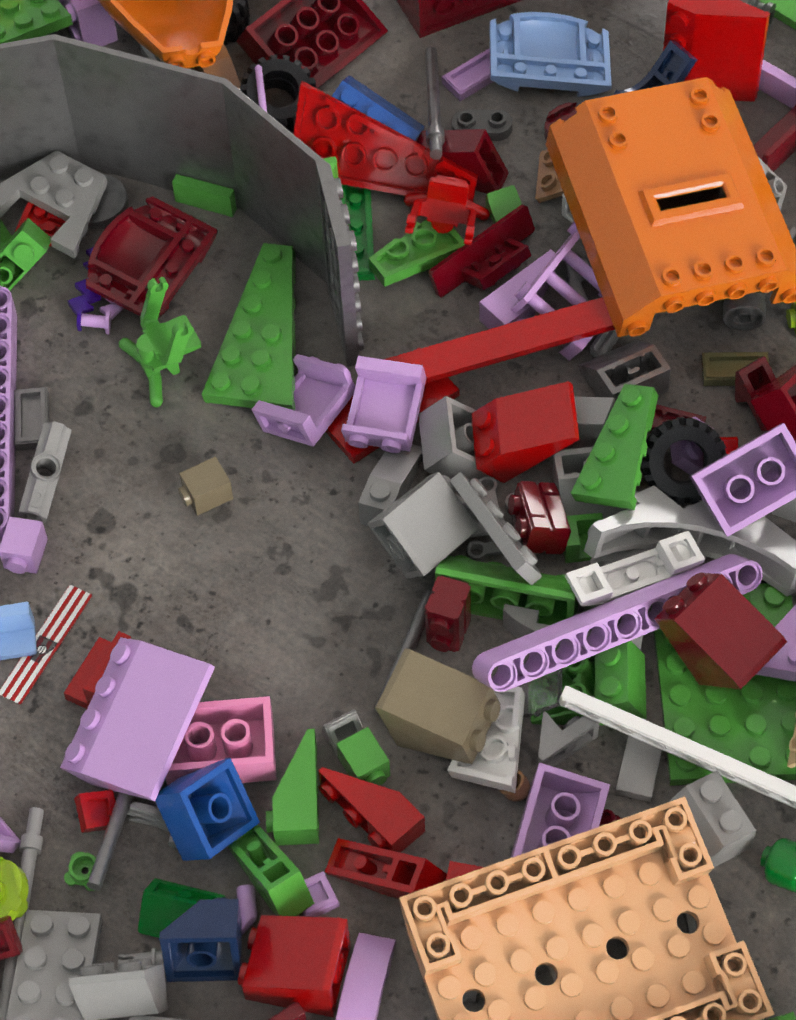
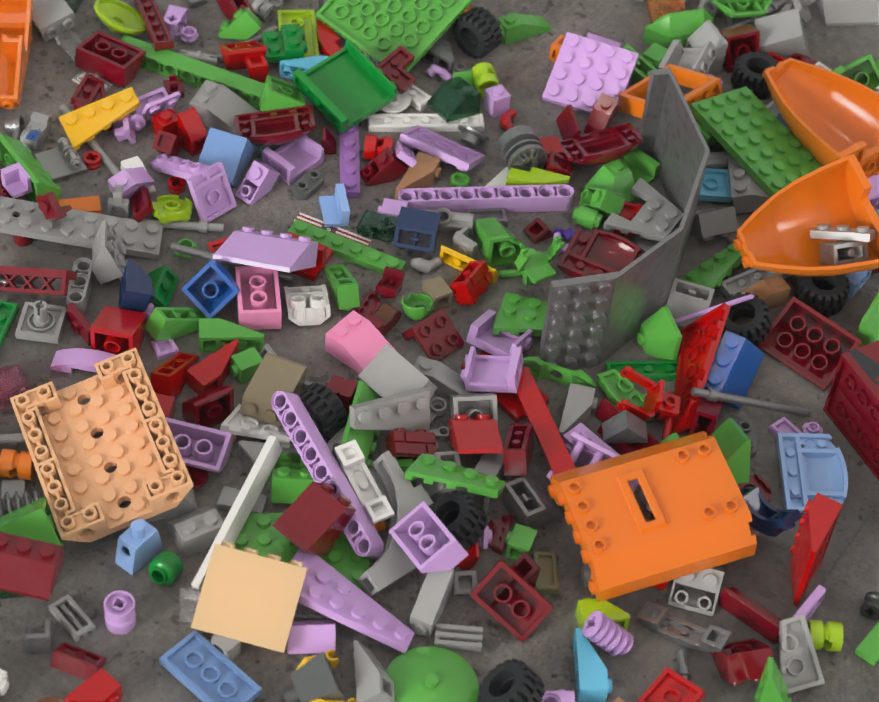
camera: 80 degrees right, 10 degrees down
(45, 278) = (587, 217): none -> bright green brick
(49, 569) = (375, 225): none -> clear green piece
(65, 349) = (538, 231): none -> dark red slope
(78, 504) = (417, 229): none -> dark blue slope
(92, 619) = (348, 249): none -> bright green plate
(97, 401) = (496, 243): none -> bright green slope
(99, 448) = (463, 244): none -> light grey bracket
(138, 503) = (425, 266): none -> light grey arm
(140, 444) = (459, 261): none -> yellow slope
(183, 552) = (391, 282): none -> dark red bracket
(189, 618) = (342, 287): none -> bright green slope
(190, 433) = (471, 283): none -> red brick
(226, 587) = (369, 304): none -> dark red tile
(234, 511) = (417, 306): none -> bright green hair
(237, 665) = (307, 304): none -> white slope
(264, 565) = (385, 318): none -> leg
(288, 491) = (436, 335): none -> dark red bracket
(319, 595) = (354, 341): none -> bright pink slope
(380, 320) = (543, 369): none -> bright green piece
(442, 313) = (577, 407): none -> light grey slope
(461, 811) = (210, 407): none -> dark red slope
(464, 49) = (812, 427): none -> lavender plate
(479, 628) = (324, 409): none -> black tyre
(497, 249) = (624, 429): none -> flat silver slope
(523, 124) = (735, 449): none -> bright green slope
(537, 370) = (518, 450): none -> dark red brick
(694, 390) = (520, 541): none -> bright green brick
(757, 904) = (137, 546): none -> light blue torso

